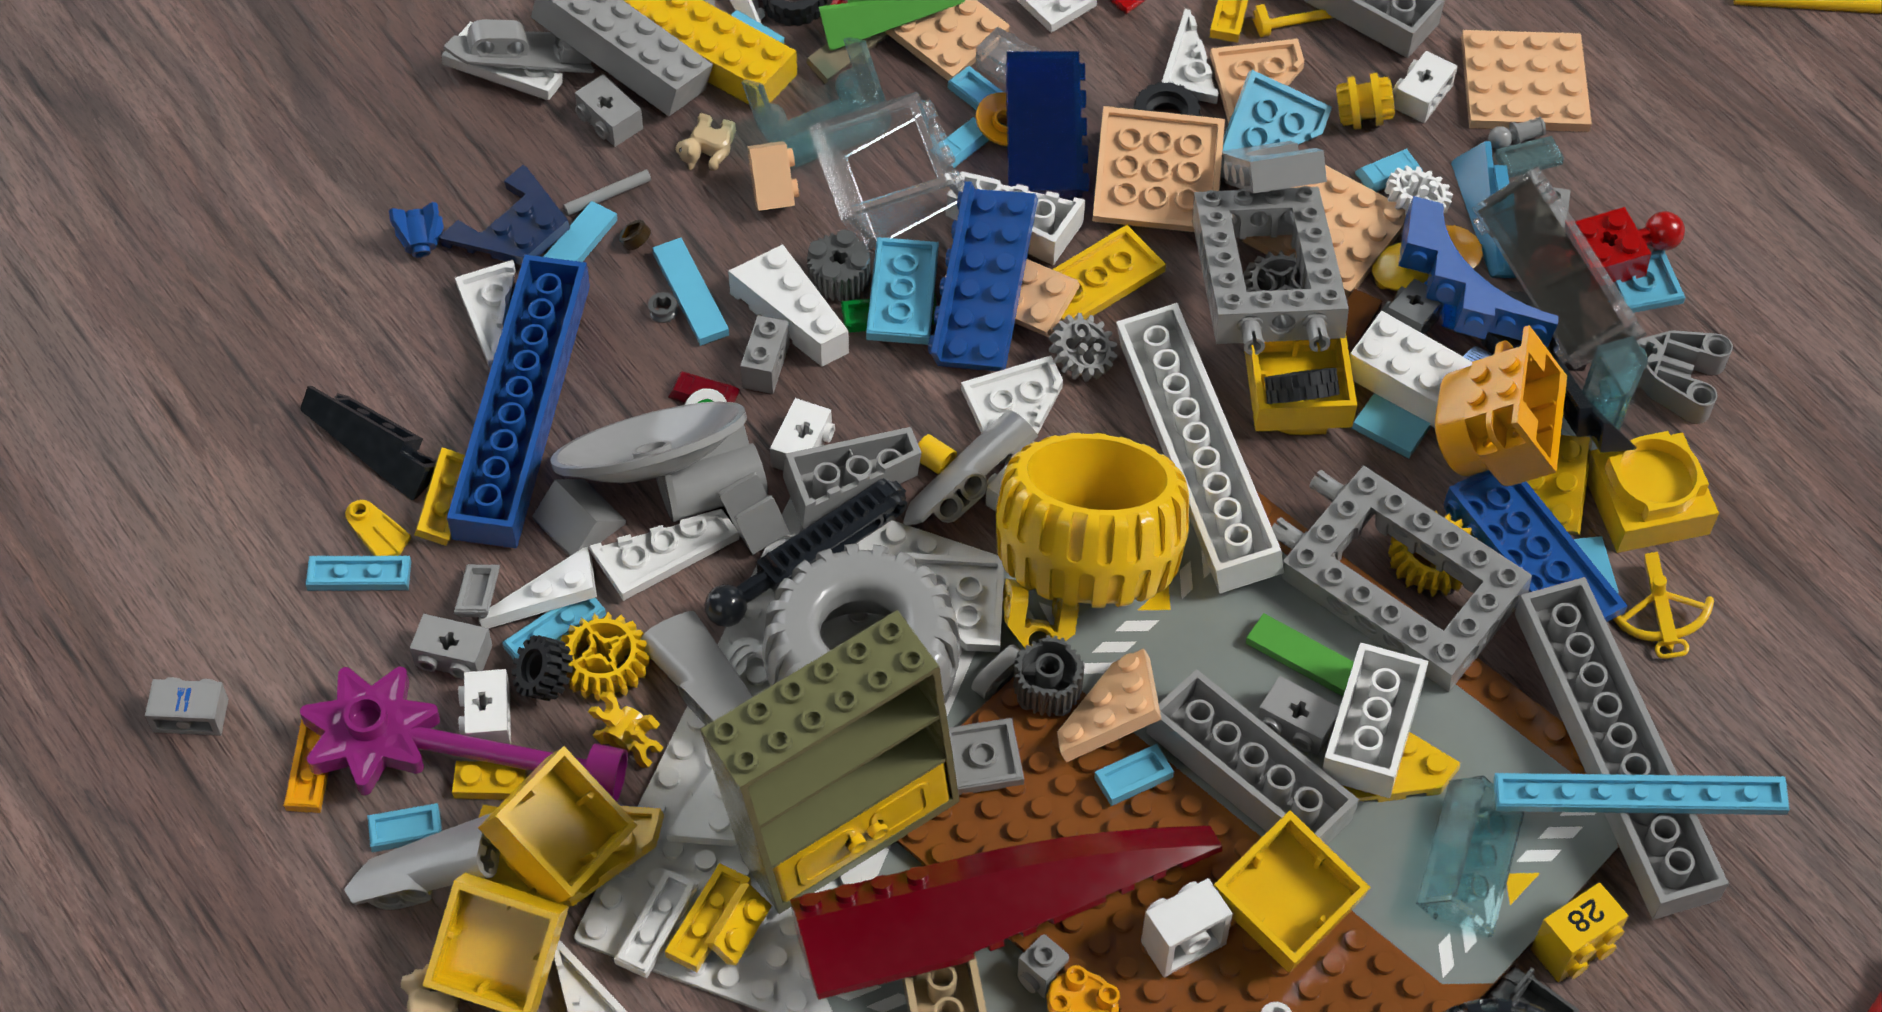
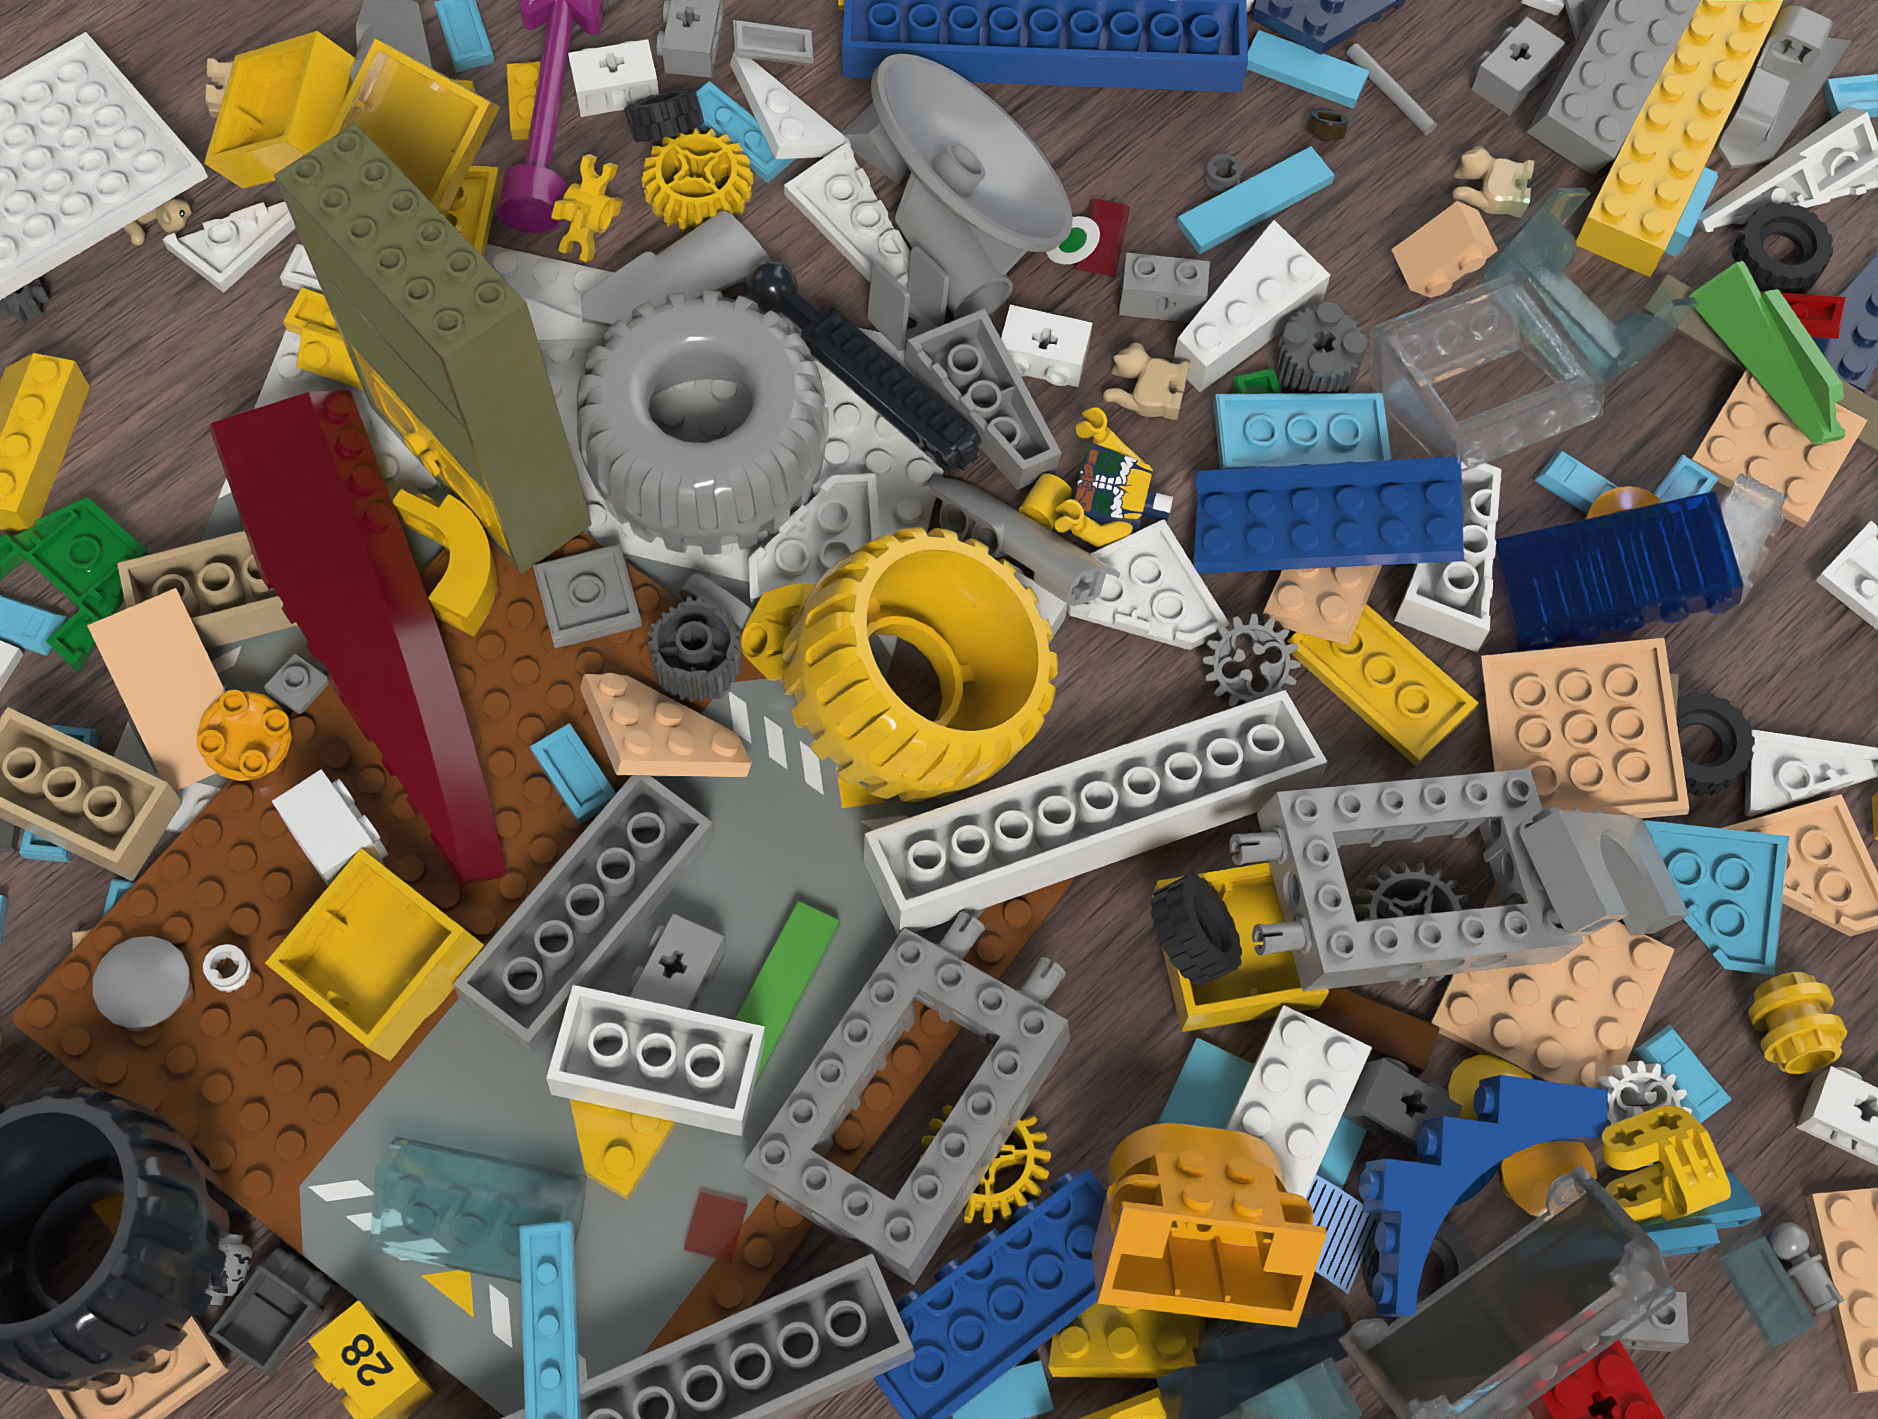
camera: 80 degrees right, 10 degrees up
(844, 374) = (1155, 379): none -> tan animal
(933, 410) = (1110, 488): none -> torso
(946, 828) = (470, 581): none -> yellow arch
(1467, 175) = (1688, 1170): none -> yellow piece
(1480, 715) = (715, 1227): none -> clear red brick

